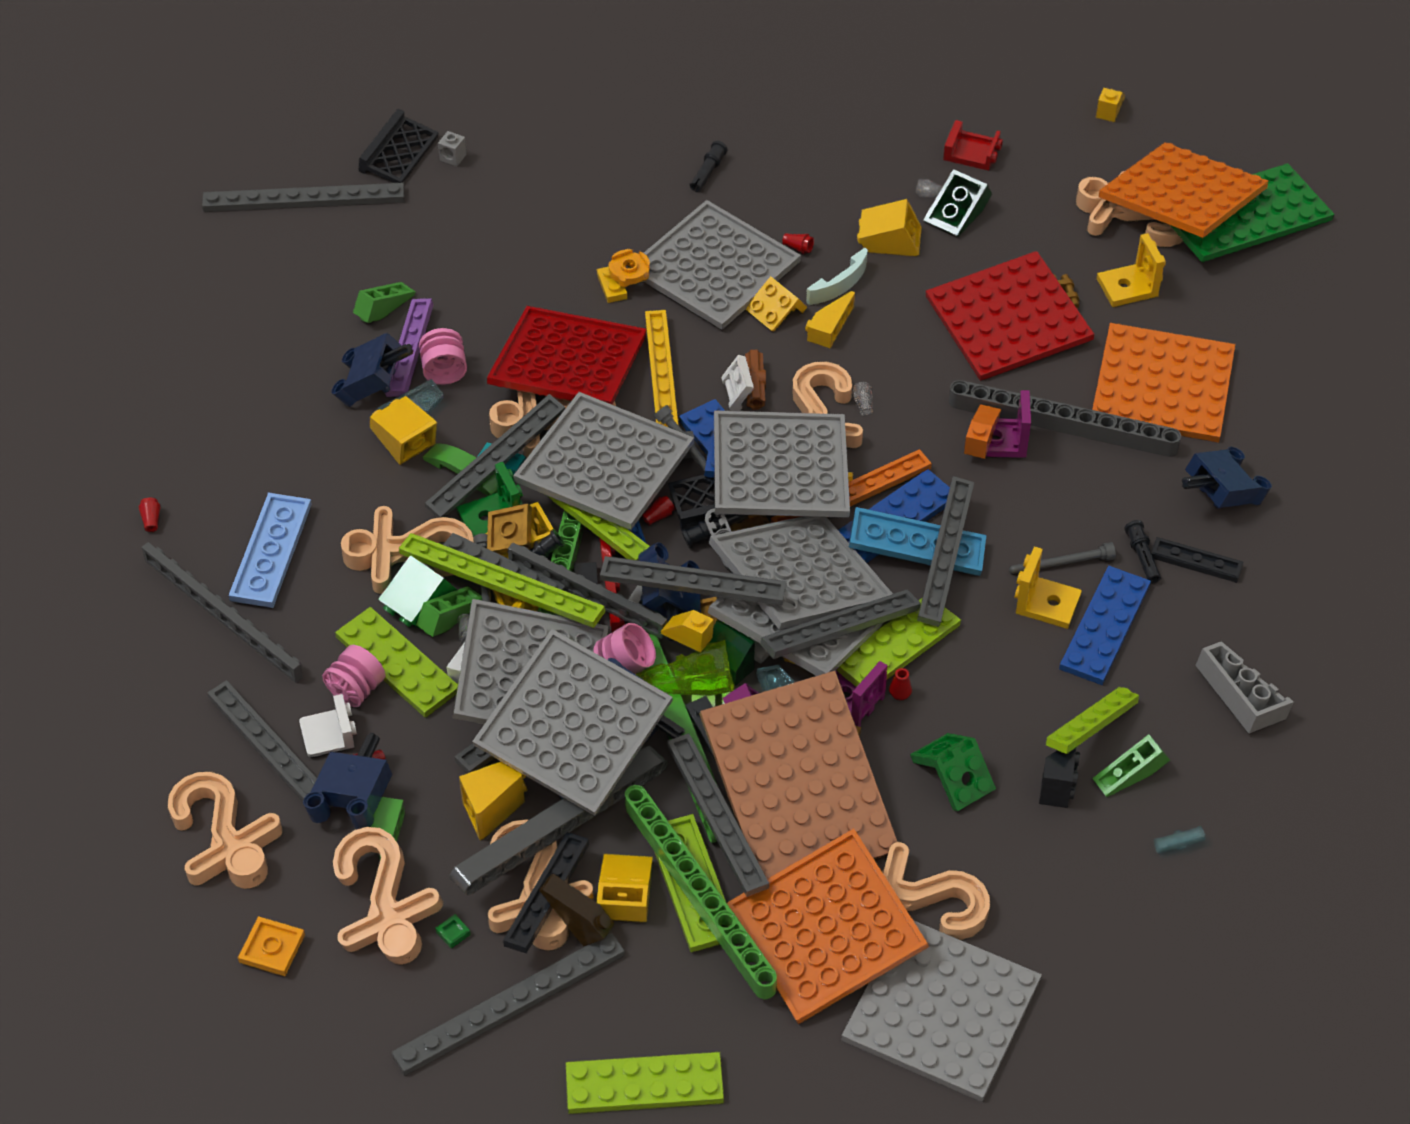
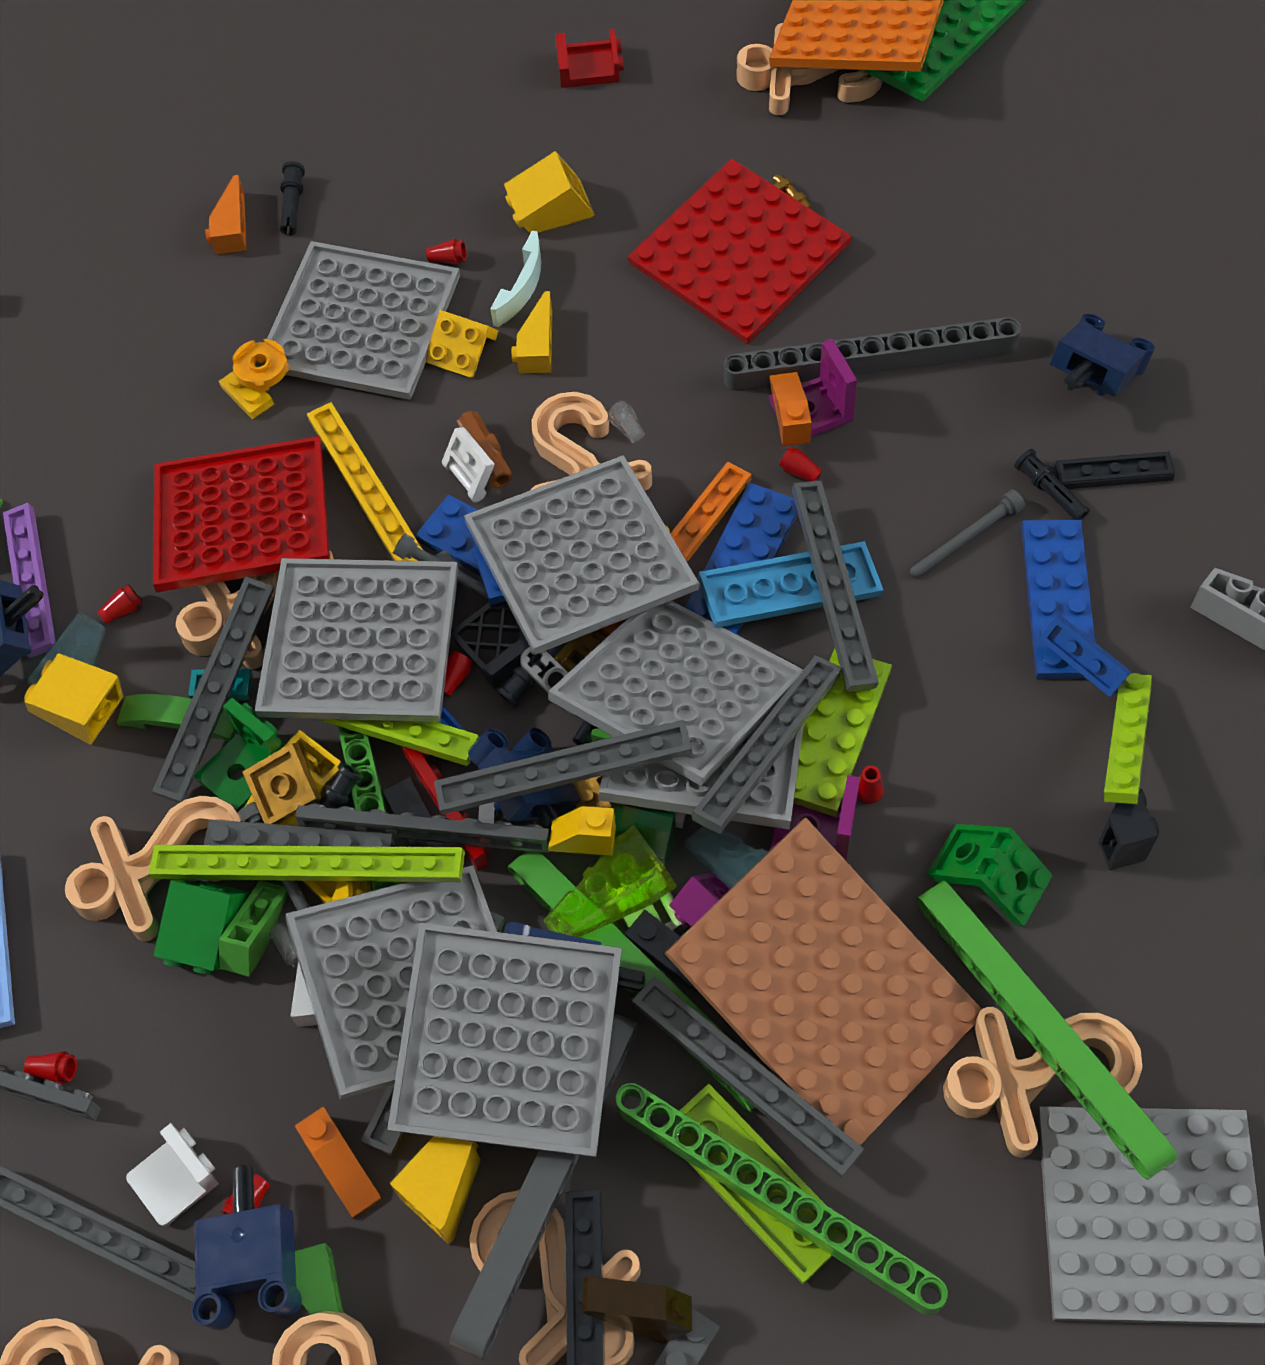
camera: 20 degrees left, 10 degrees up
(287, 639) = (54, 1067): none -> red cone
(354, 675) = (174, 1079): bright pink wheel -> none
(404, 665) = (218, 1030): lime plate -> none
(434, 762) = (338, 1162): none -> orange slope
(442, 356) = (79, 576): bright pink wheel -> none
(461, 385) = (121, 603): none -> red cone
(625, 887) = (674, 1229): yellow slope -> none
(629, 646) = (516, 893): bright pink wheel -> none
(656, 166) = (227, 220): none -> orange slope
(829, 925) = (964, 1172): orange plate -> none
(927, 188) = (564, 129): clear cone -> none
(930, 866) = (1048, 1032): none -> bright green beam
(958, 203) = (609, 134): dark green slope -> none
(969, 470) = (800, 465): none -> red cone
(1035, 593) = (961, 590): yellow bracket -> none
(1095, 661) = (1084, 655): none -> blue plate
(1132, 766) = (1194, 776): bright green slope -> none
(1142, 277) = (865, 145): yellow bracket -> none
(1165, 380) = (956, 261): orange plate -> none

